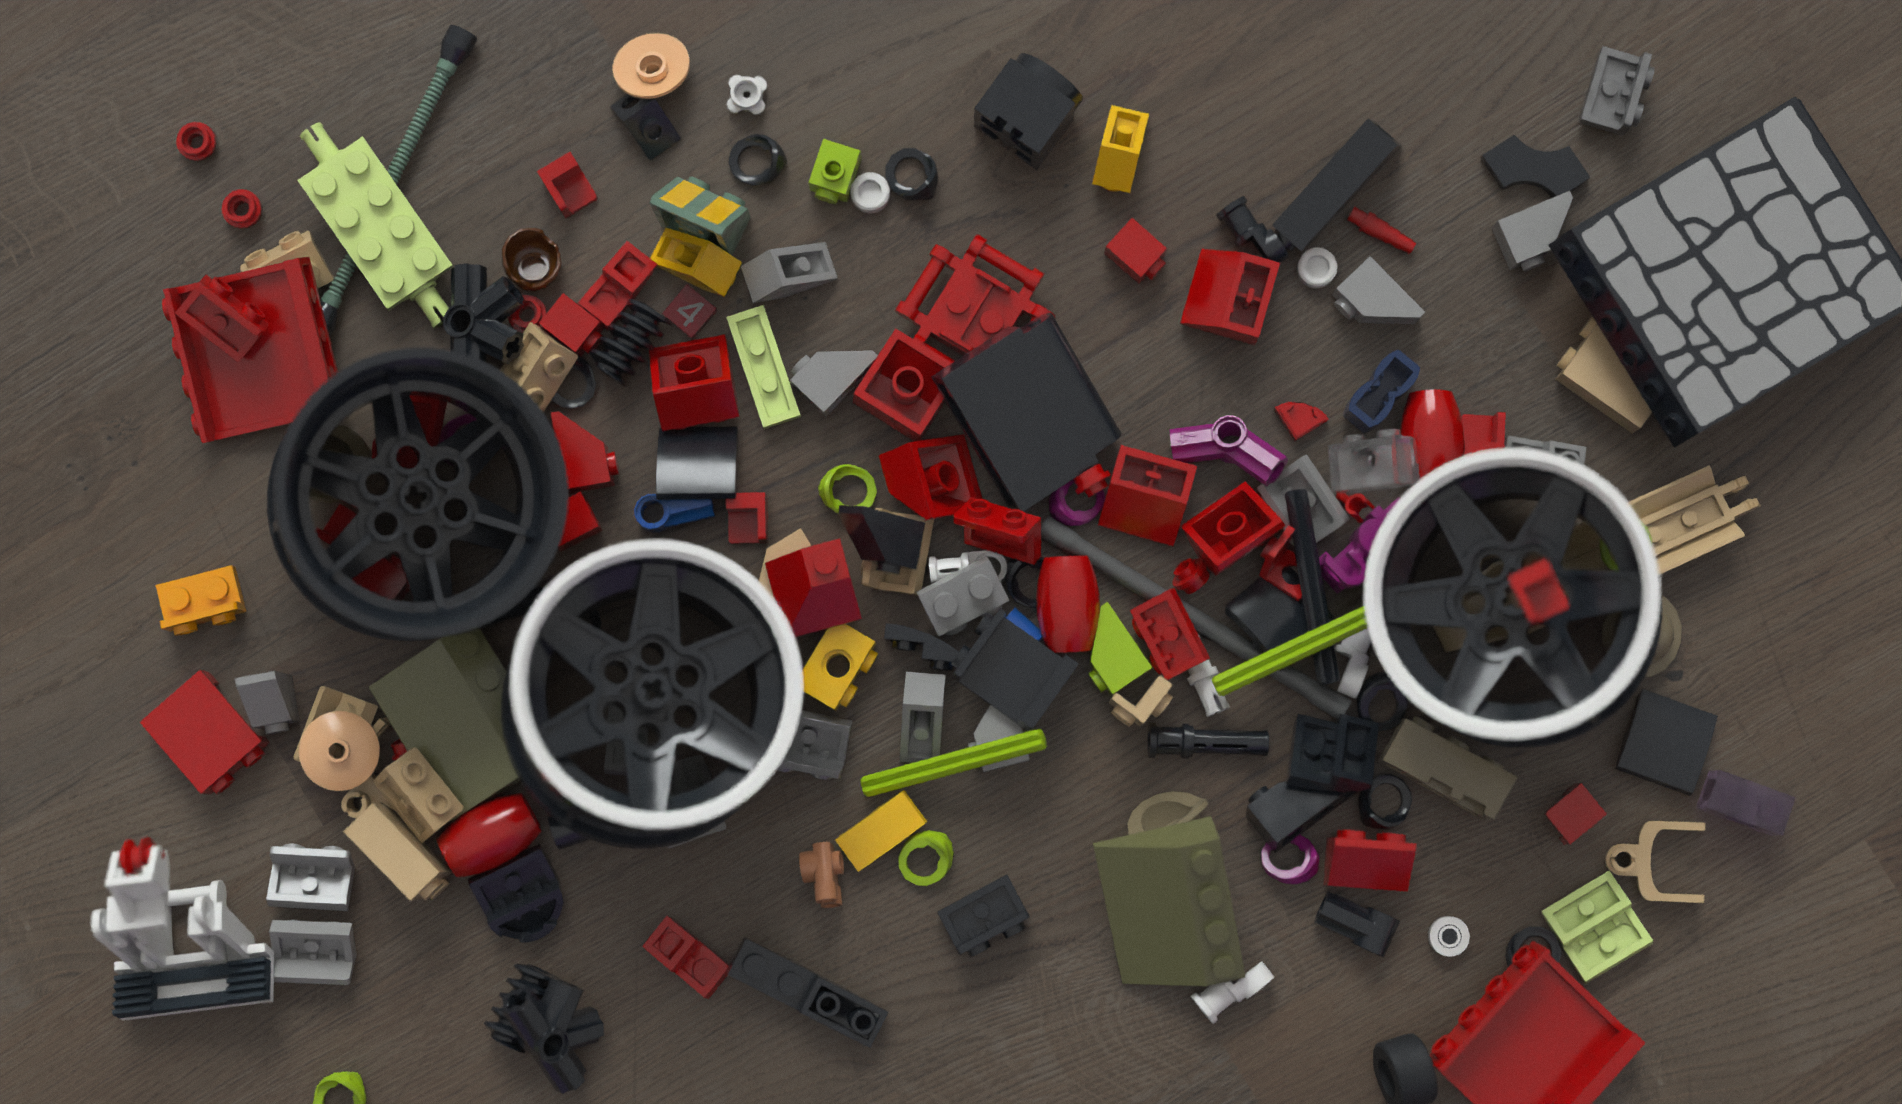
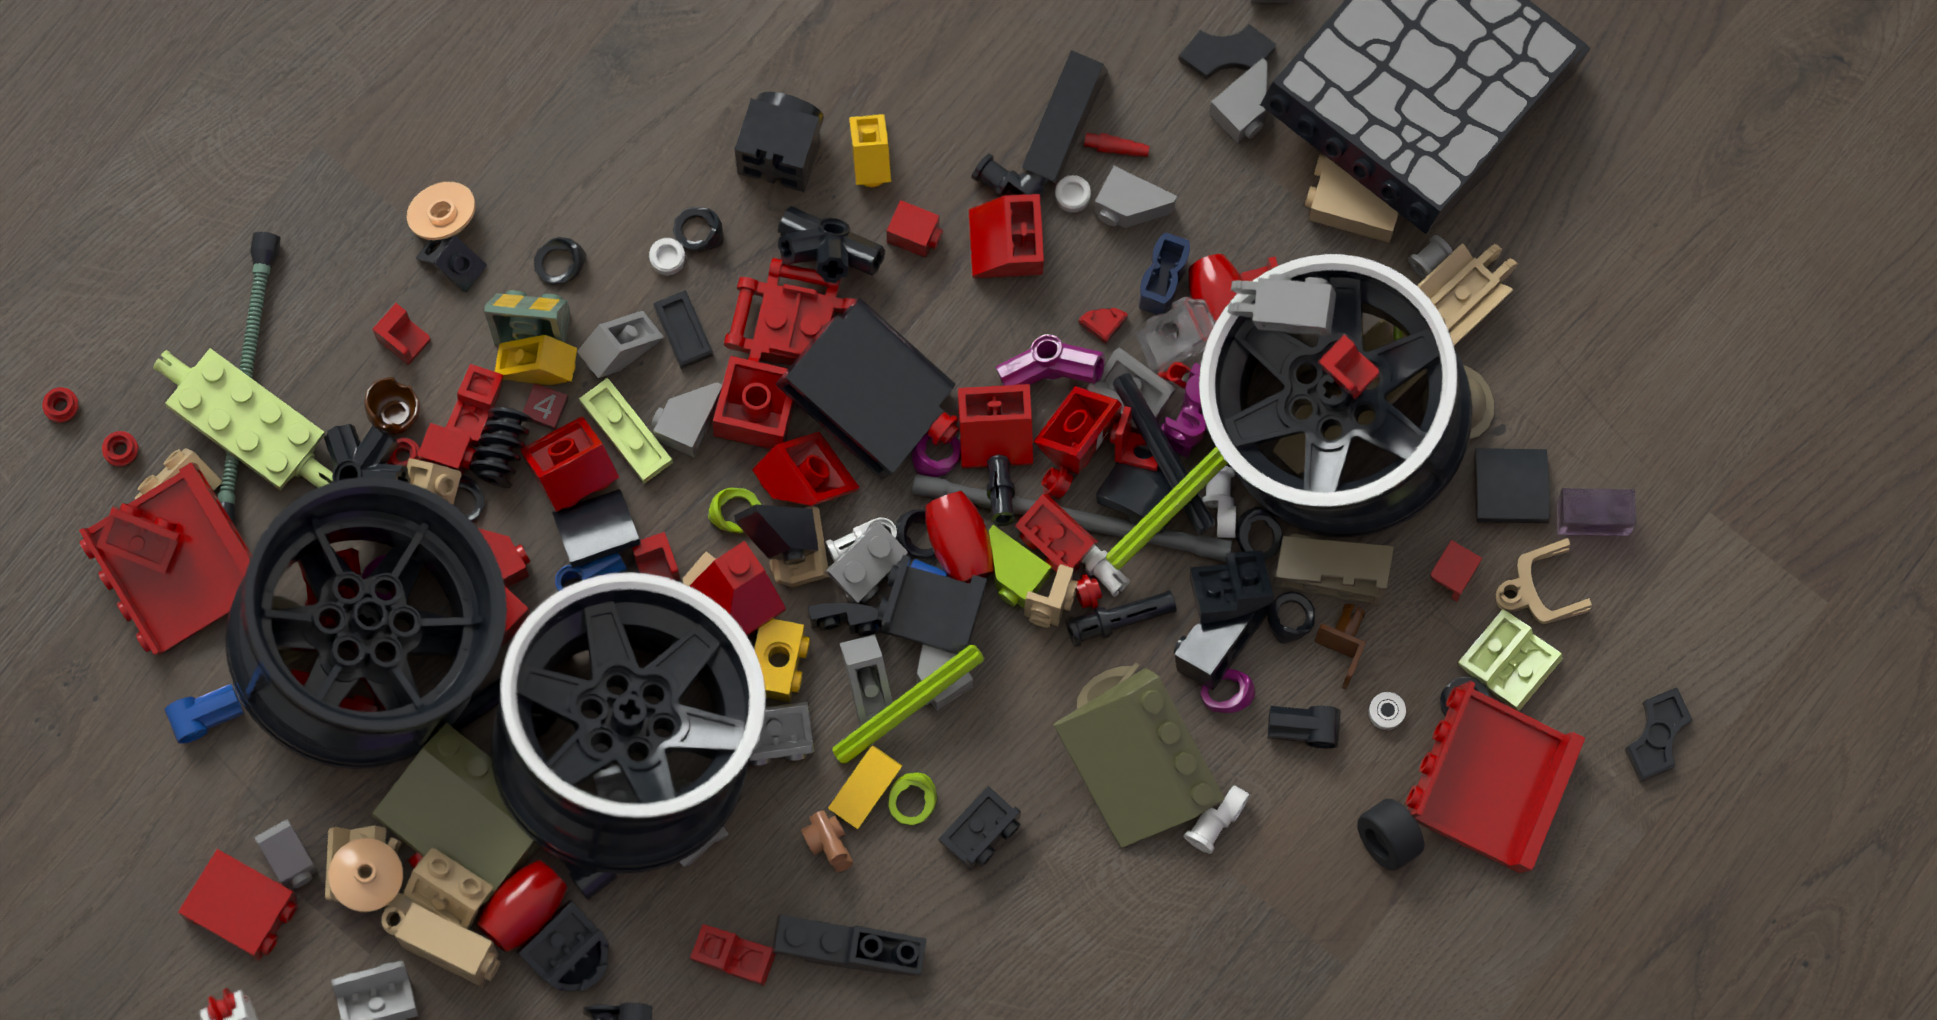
camera: 25 degrees left, 10 degrees down
(200, 599) = (195, 794): light orange bracket -> none
(224, 520) = (194, 716): none -> blue piece
(746, 84) = (528, 200): white plate -> none
(834, 171) = (630, 247): lime brick -> none
(860, 277) = (683, 329): none -> black tile
(1000, 529) = (880, 495): red bracket -> none
(1040, 238) = (827, 242): none -> black piece
(1128, 567) = (1000, 490): none -> black pin
(1182, 704) = (1088, 592): none -> red plate
(1369, 863) = (1295, 666): red slope -> none
(1431, 845) = (1343, 637): none -> reddish brown bracket
(1497, 499) = (1287, 304): none -> light grey hinge
(1670, 467) = (1430, 256): none -> light grey bush
(1735, 1045) = (1653, 750): none -> black tile

